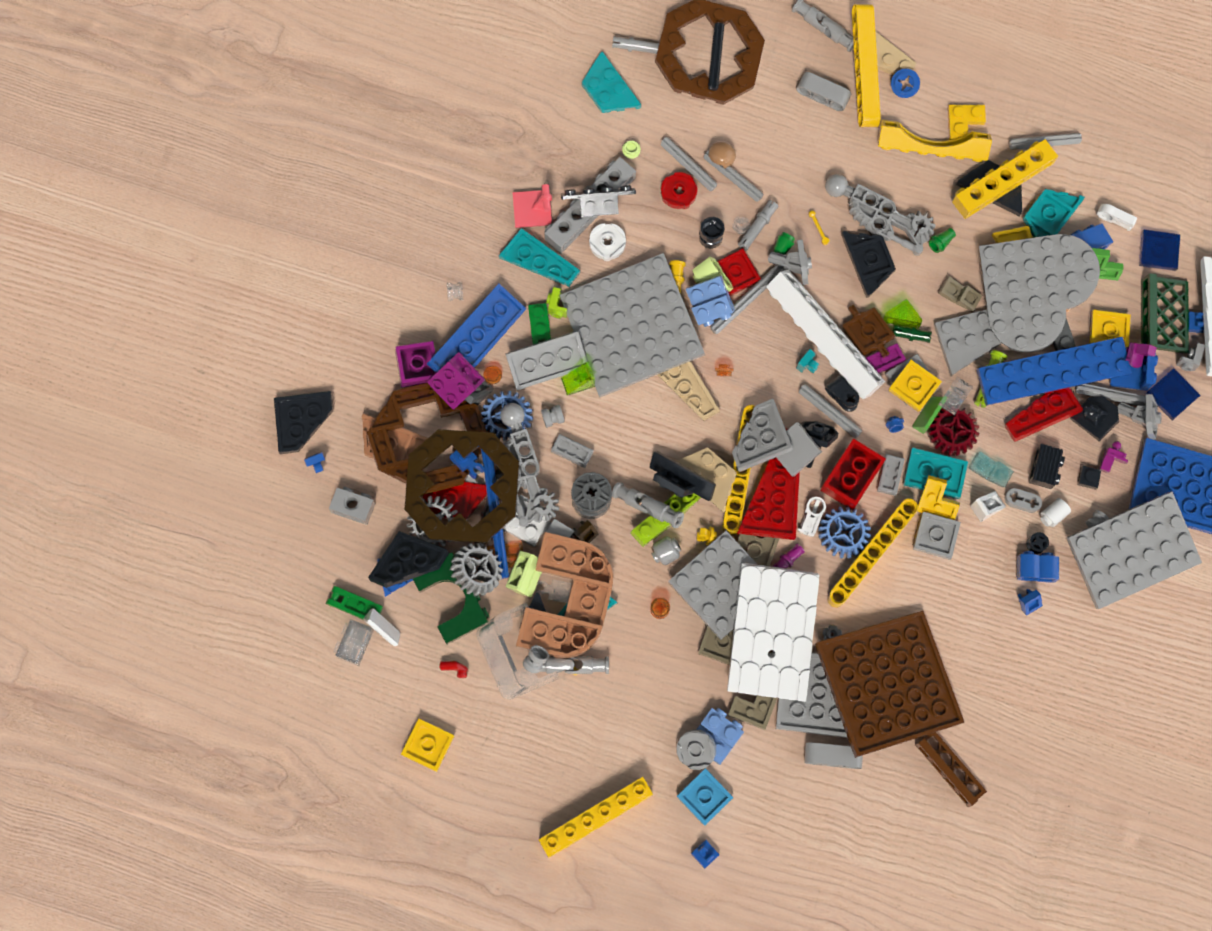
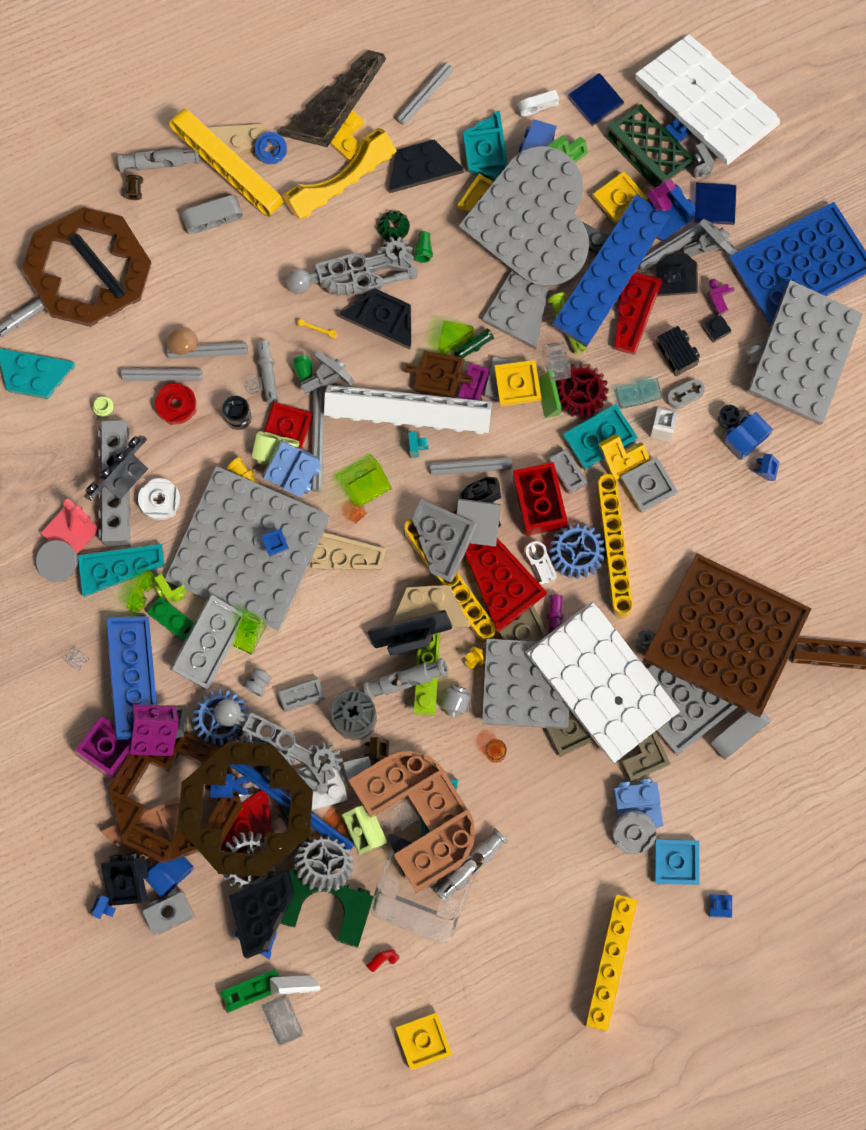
camera: 40 degrees left, 0 degrees up
(300, 418) = (52, 886): black plate -> none
(346, 457) = (125, 879): none -> black plate
(375, 482) = (168, 875): none -> blue brick
(492, 375) = (175, 696): clear orange plate -> none
(504, 219) = (56, 561): none -> light grey tile
(529, 290) = (137, 599): none -> clear neon green slope
(535, 659) = (443, 887): light grey wheel -> none
(650, 336) = (275, 542): none -> blue tile
(750, 354) = (364, 481): none -> clear neon green slope
(790, 28) = (133, 187): none -> dark brown bush
(841, 391) = (466, 442): black piece -> none
(895, 424) = (531, 428): blue plate -> none
(943, 213) = (394, 216): none -> dark green gear
(960, 295) = (482, 277): dark tan slope -> none
(975, 92) = (333, 104): none -> clear smoke wing
(1040, 150) = (432, 105): yellow brick -> none
(1055, 513) = (719, 380): white brick -> none

